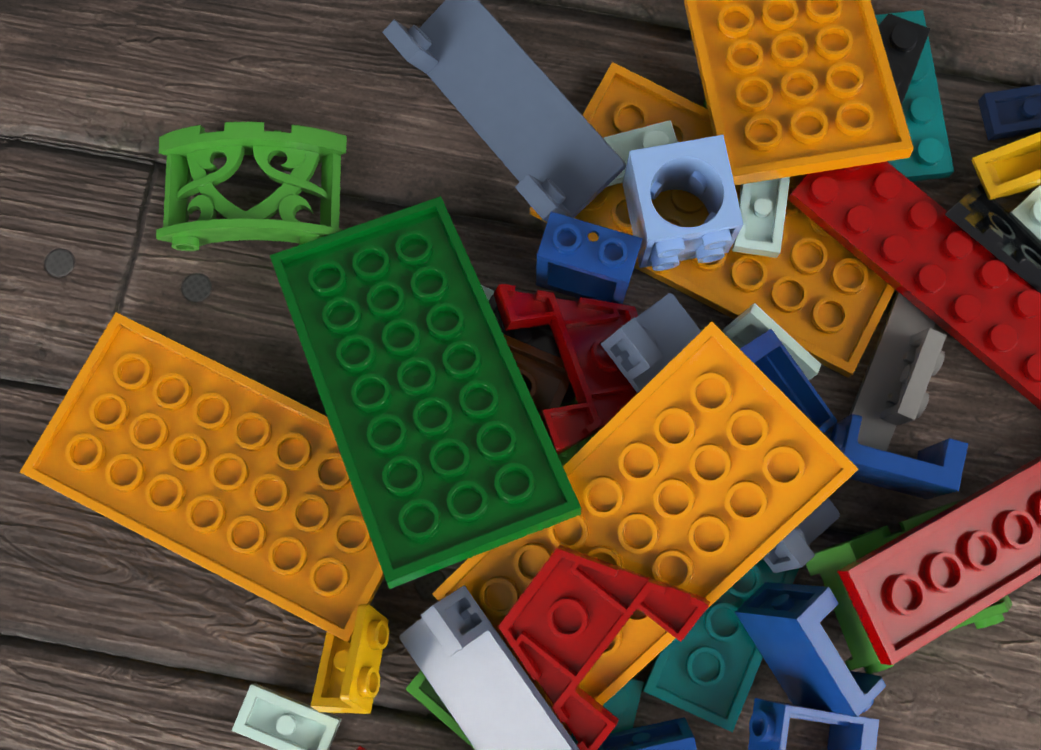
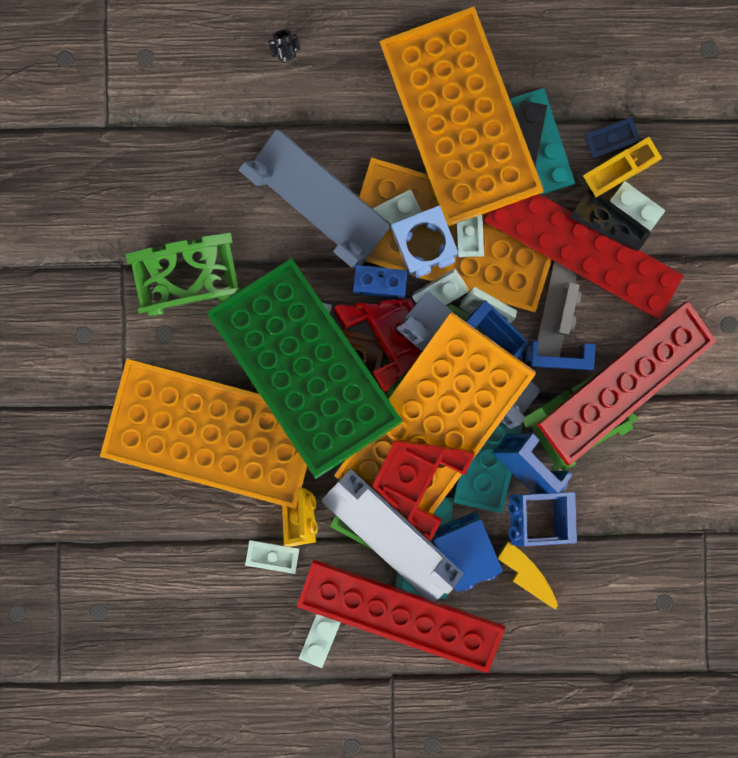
camera: 20 degrees left, 10 degrees up
(703, 298) = (445, 288): none -> light aqua plate

